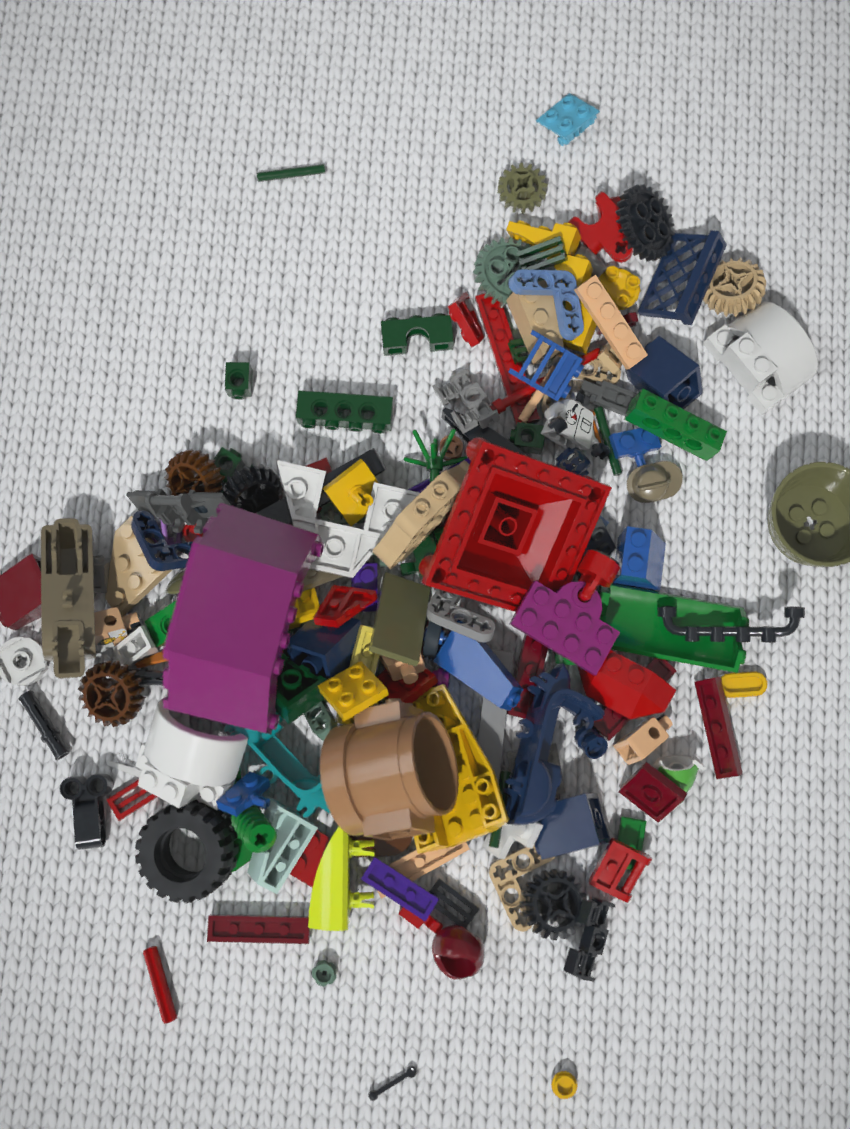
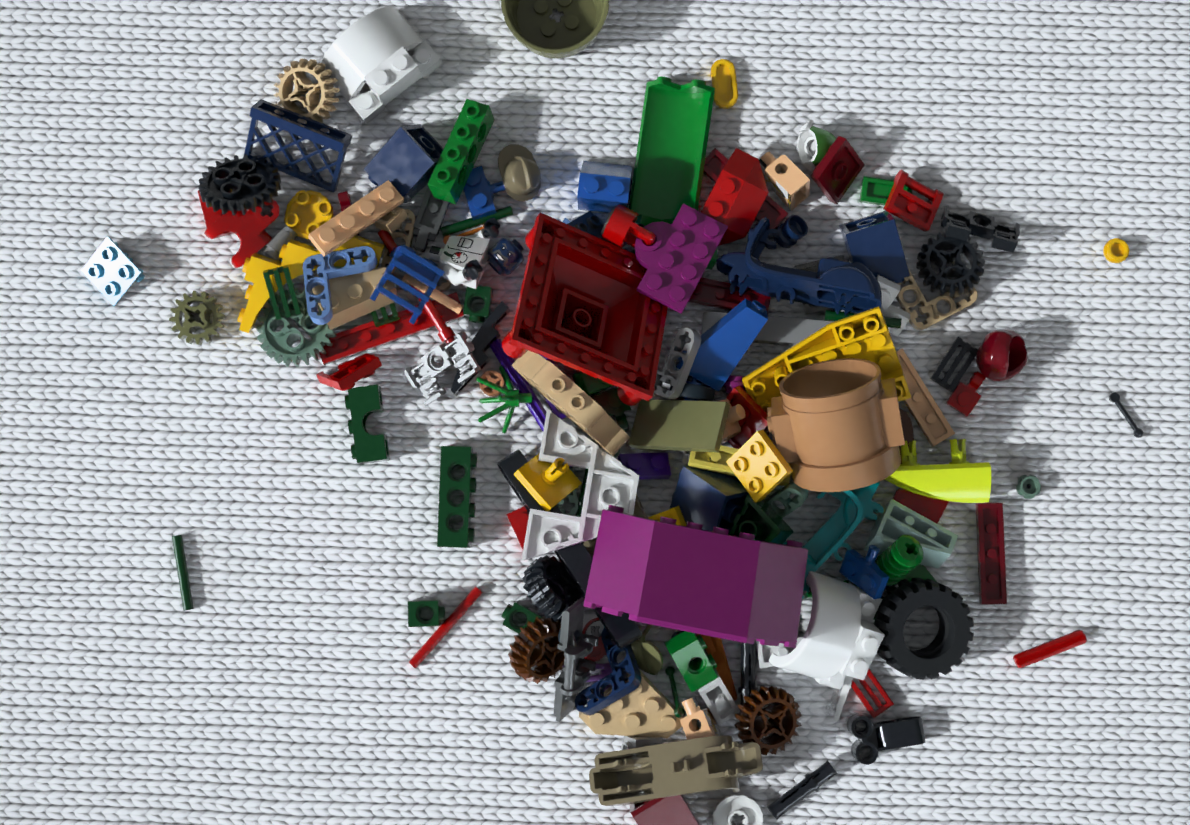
camera: 90 degrees left, 5 degrees up
(127, 608) = (678, 711): none -> dark green hinge
(225, 399) = (445, 627): none -> red bar
(343, 604) = (667, 484): red wing -> none
(400, 888) = (945, 414): dark purple plate -> none
(718, 728) = (769, 106): dark red plate -> none
(742, 633) = (675, 83): black bar -> none

